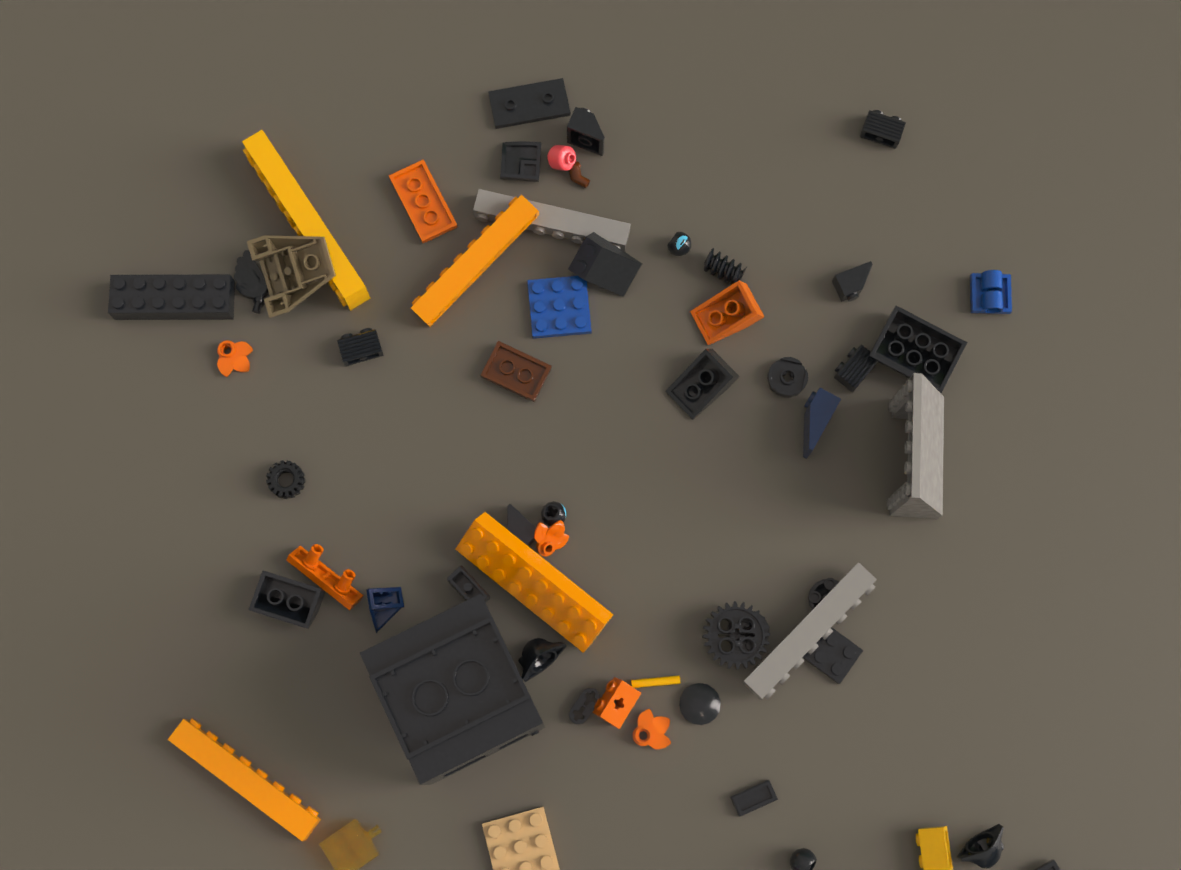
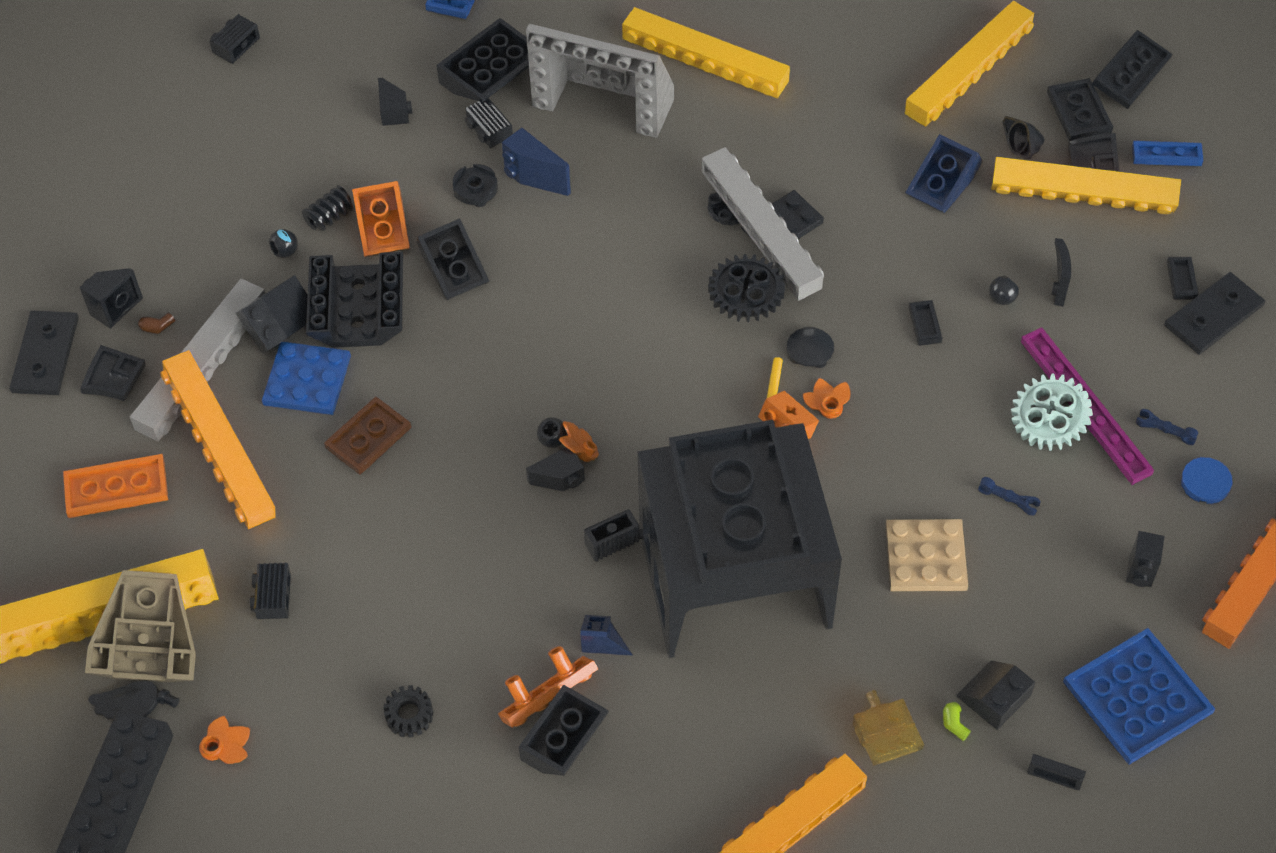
camera: 70 degrees left, 20 degrees down
(533, 581) = (613, 469): light orange brick -> none
(561, 157) = (129, 329): coral head -> none
(634, 306) = (336, 305): none -> black slope
(919, 782) = (944, 173): none -> dark blue slope
(995, 533) = (706, 52): none -> yellow brick
(1062, 780) = (969, 63): none -> yellow brick

